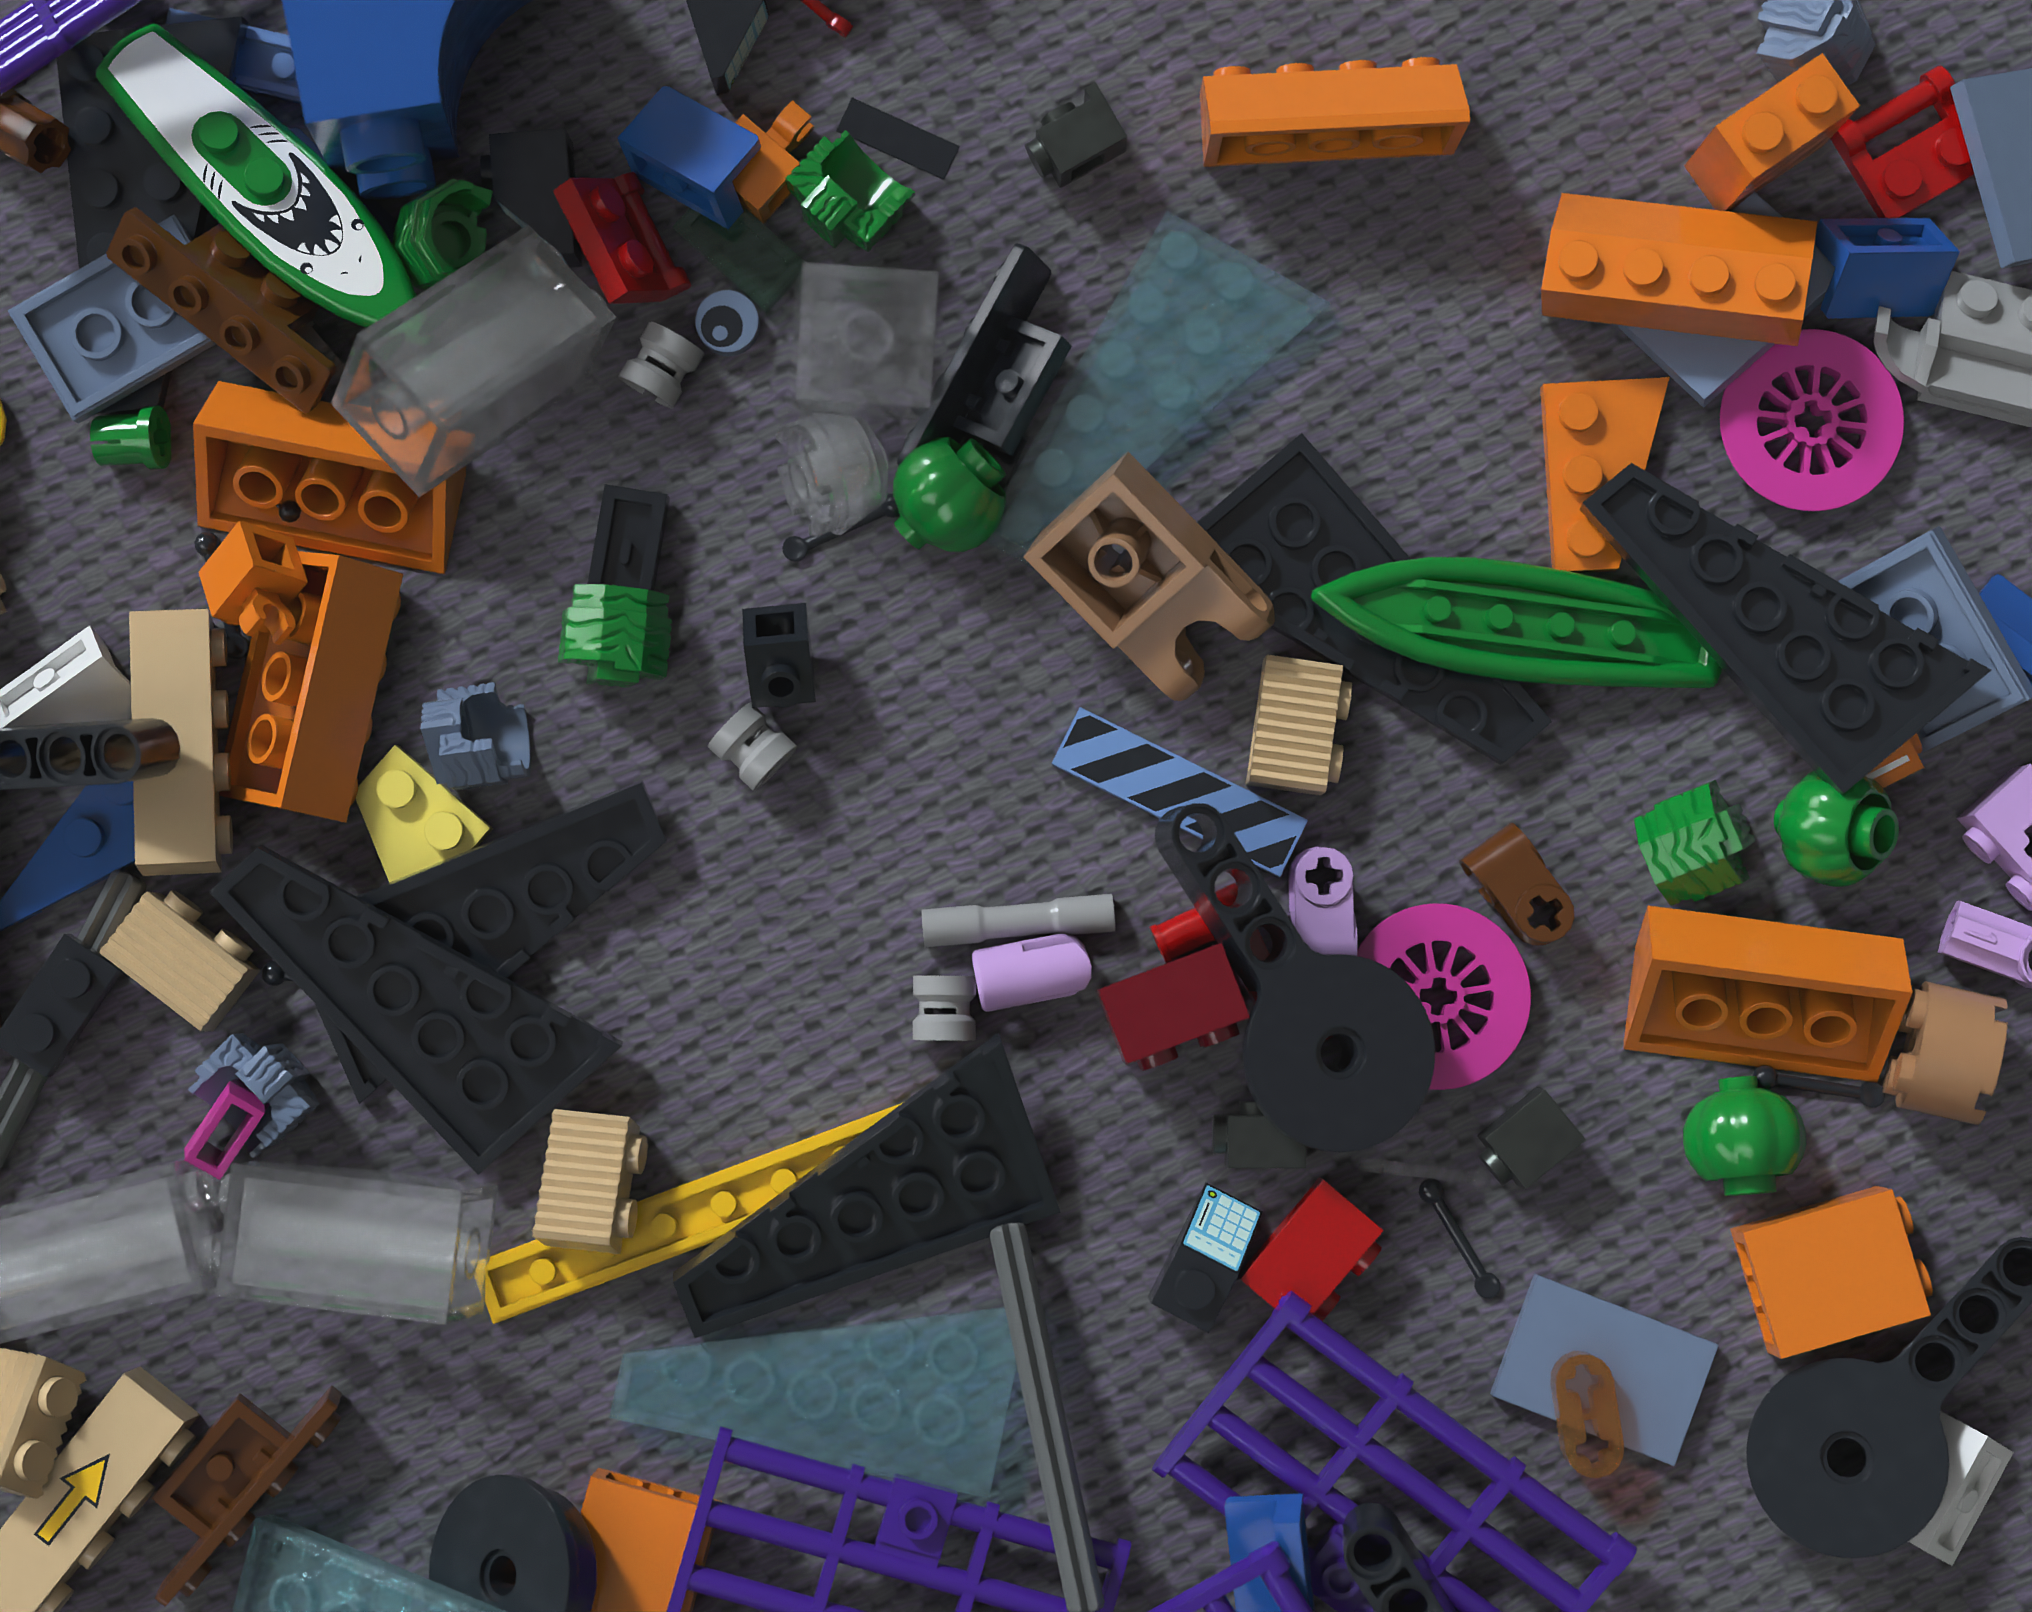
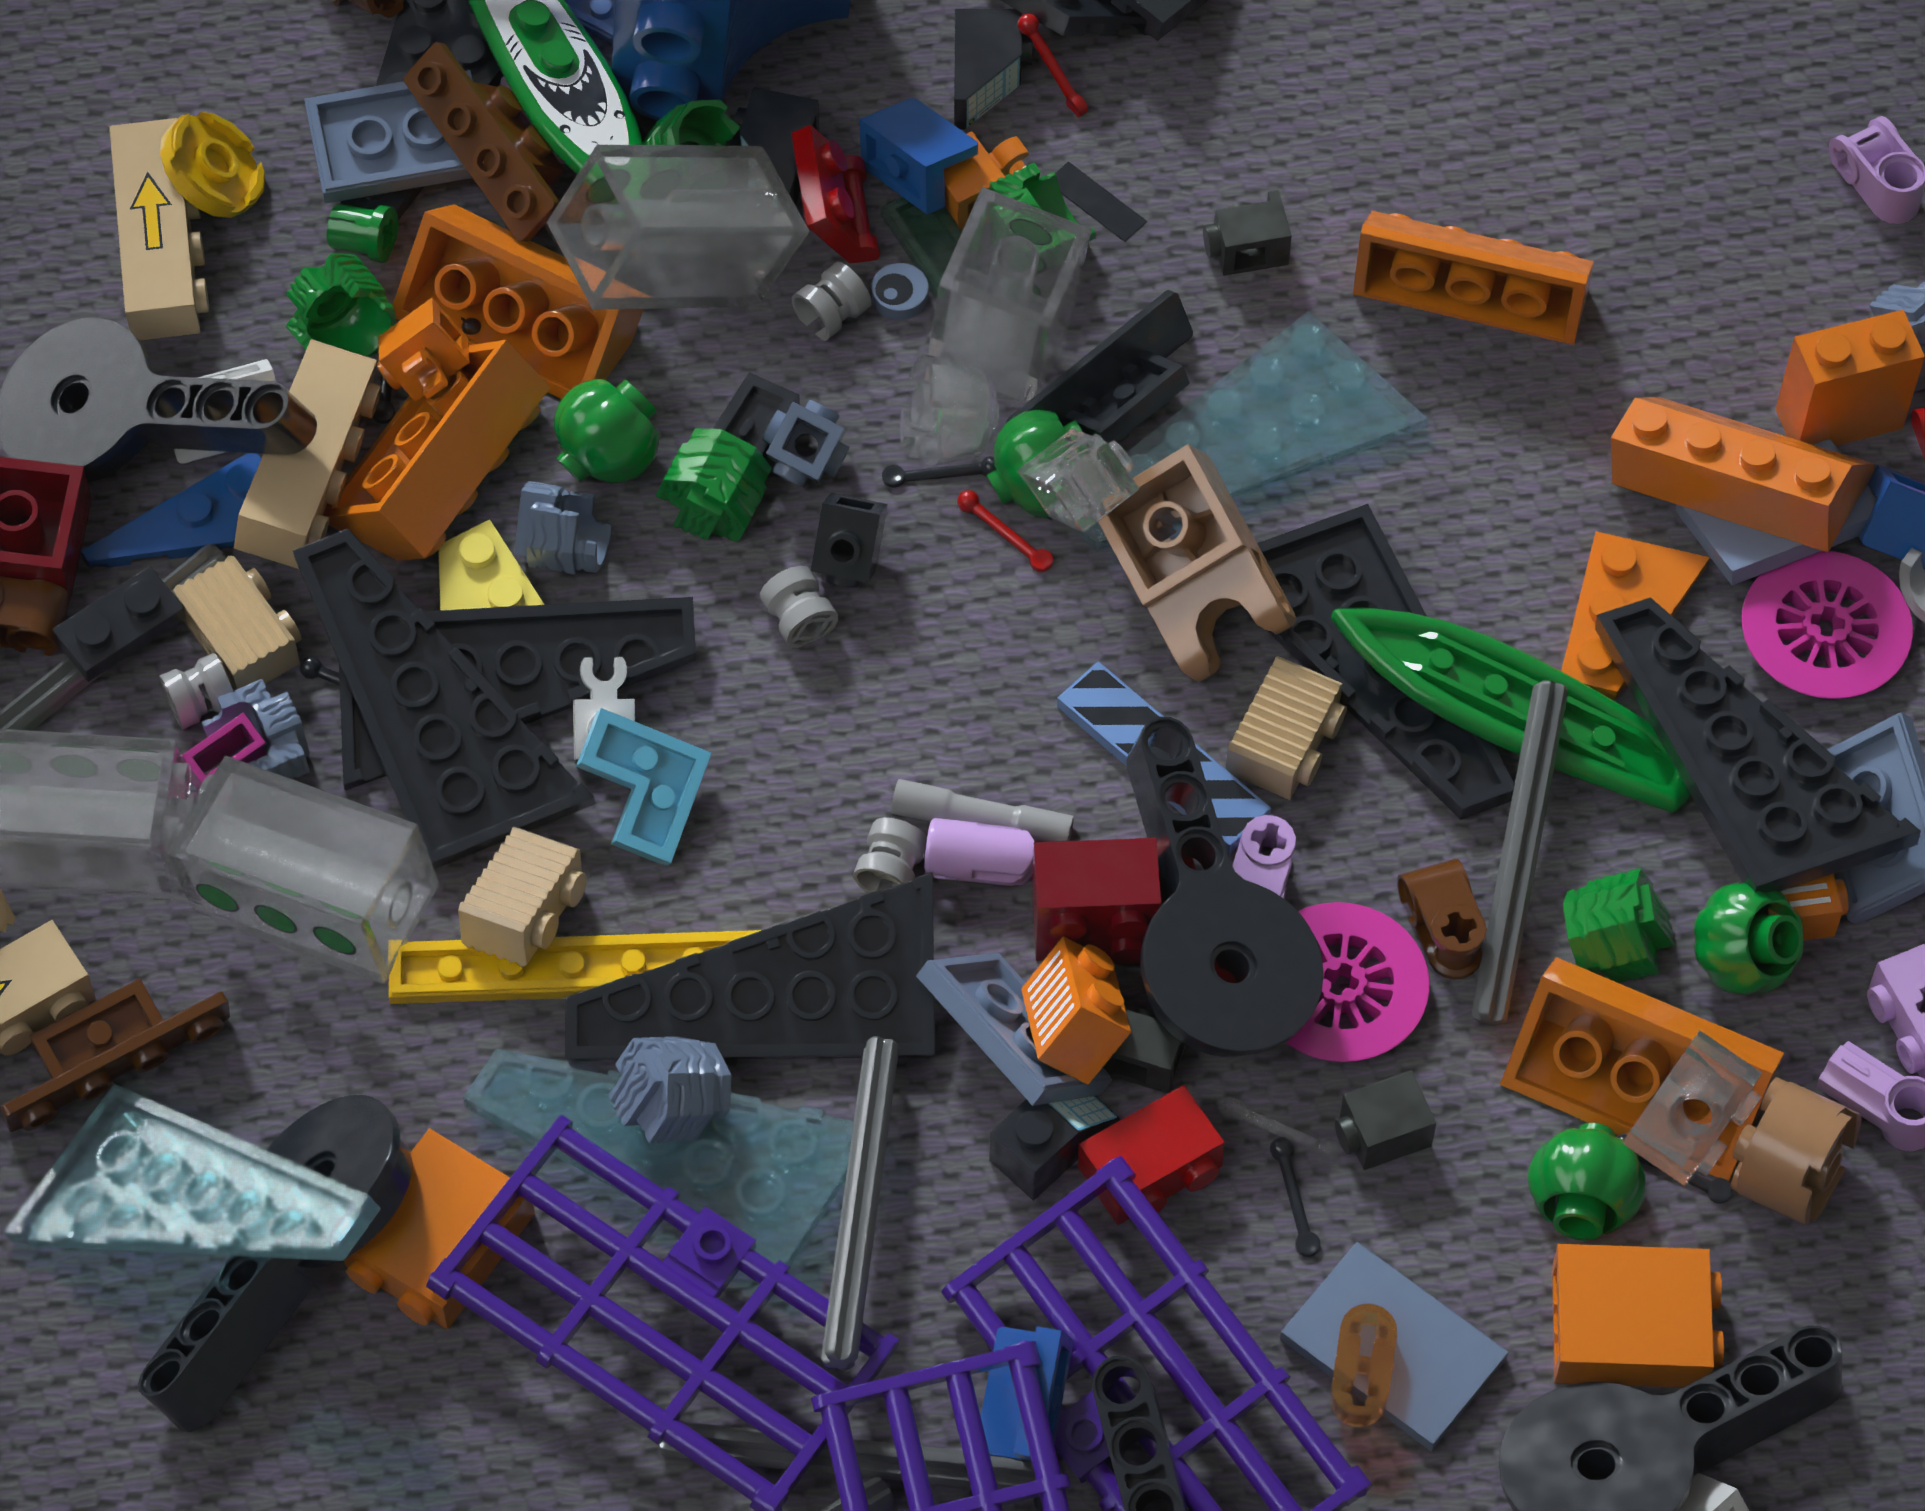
camera: 15 degrees right, 25 degrees down
(145, 554) = (340, 306): none -> green hair
(168, 1051) = (184, 693): none -> light grey wheel
(481, 613) = (606, 431): none -> green plant
(598, 945) = (602, 695): none -> white plate
(677, 995) = (661, 779): none -> medium azure plate
(701, 576) = (799, 421): none -> sand blue brick
(816, 1352) = (671, 1087): none -> sand blue hair
(979, 599) = (1040, 559): none -> red hinge
(1008, 539) = (1080, 478): none -> clear brick
(1134, 1170) = (989, 1005): none -> sand blue tile
(1192, 1139) = (1076, 1010): none -> orange brick
(1579, 797) = (1520, 853): none -> dark grey axle
(1841, 1050) = (1702, 1073): none -> clear brick

